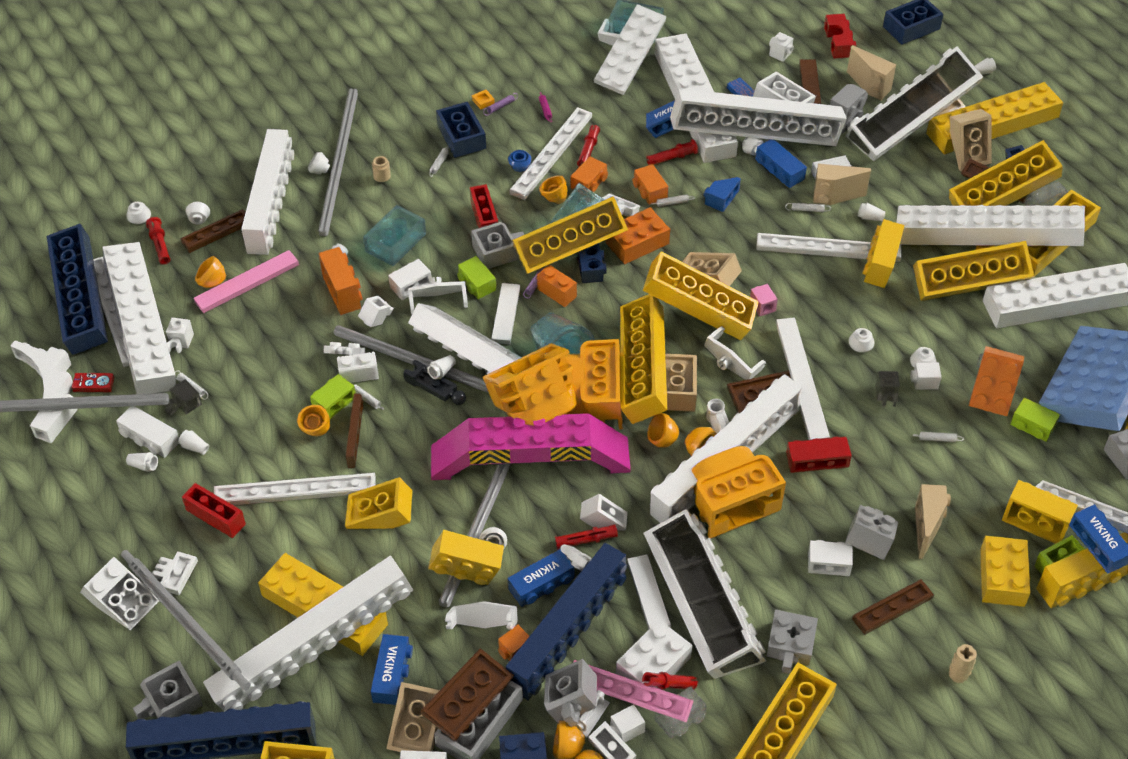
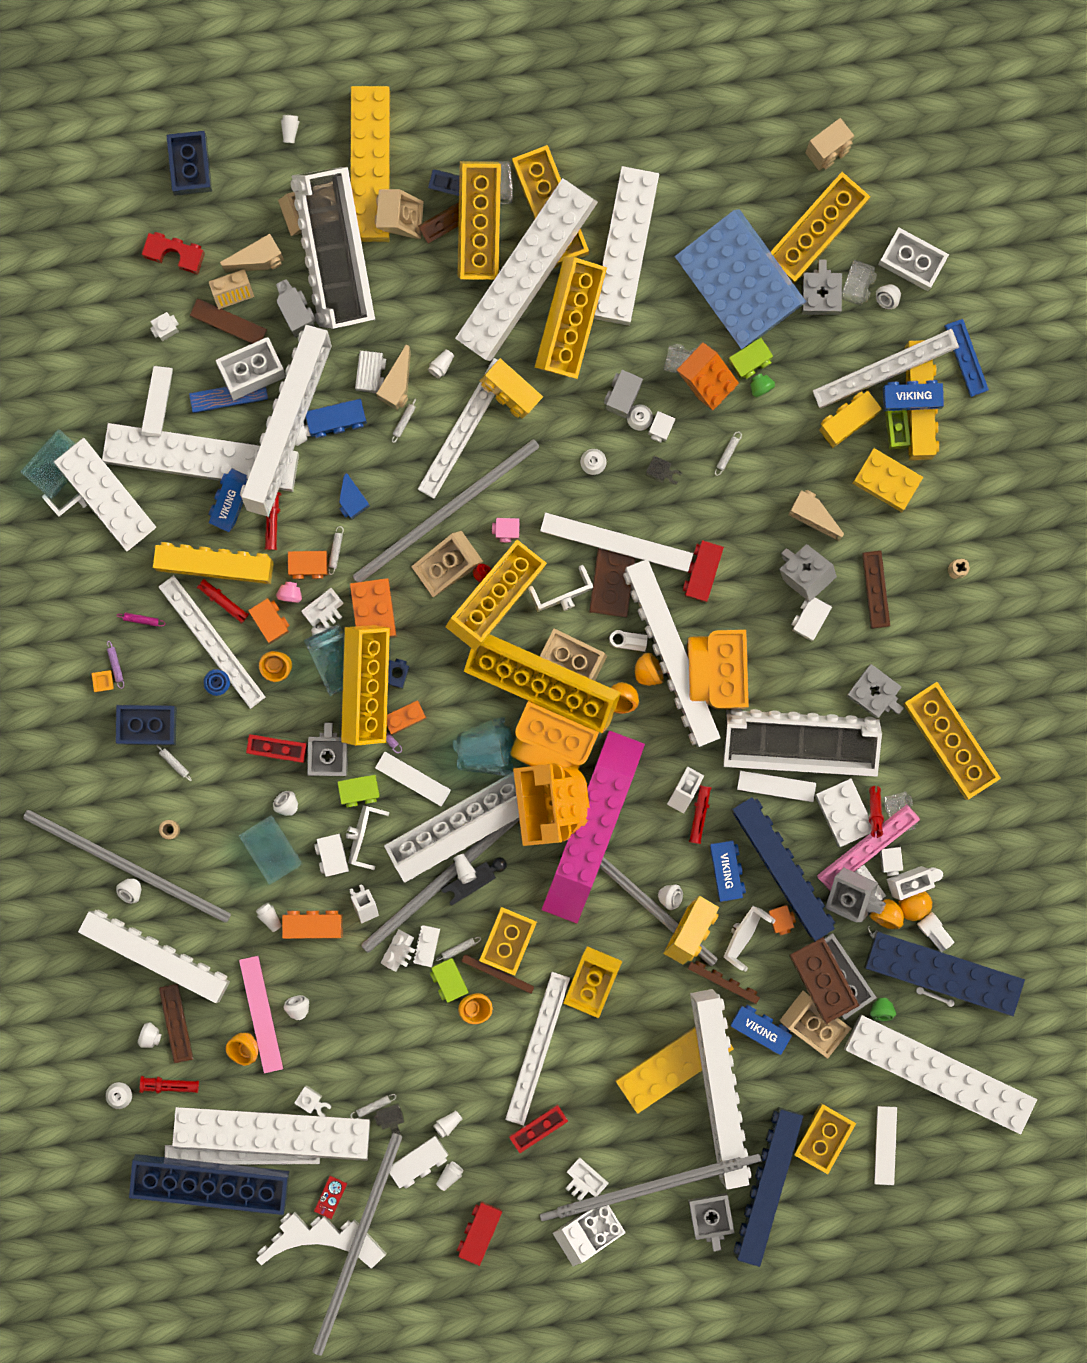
camera: 70 degrees left, 35 degrees up
(91, 503) = (479, 1233): none -> red brick
(261, 298) = (297, 1007): none -> white cone
(388, 423) = (508, 941): none -> yellow brick
(426, 625) = (731, 985): none -> reddish brown plate
(439, 235) = (285, 803): none -> white cone
(579, 559) = (727, 831): white hinge -> none
(615, 125) = (213, 564): none -> yellow brick
(619, 180) = (289, 593): none -> bright pink cone
(721, 56) = (157, 401): none -> white tile
(758, 260) = (446, 511): none -> light grey axle
(837, 70) = (231, 289): none -> tan brick
(936, 332) = (624, 393): none -> light grey brick
(1017, 437) = (761, 385): none -> bright green cone

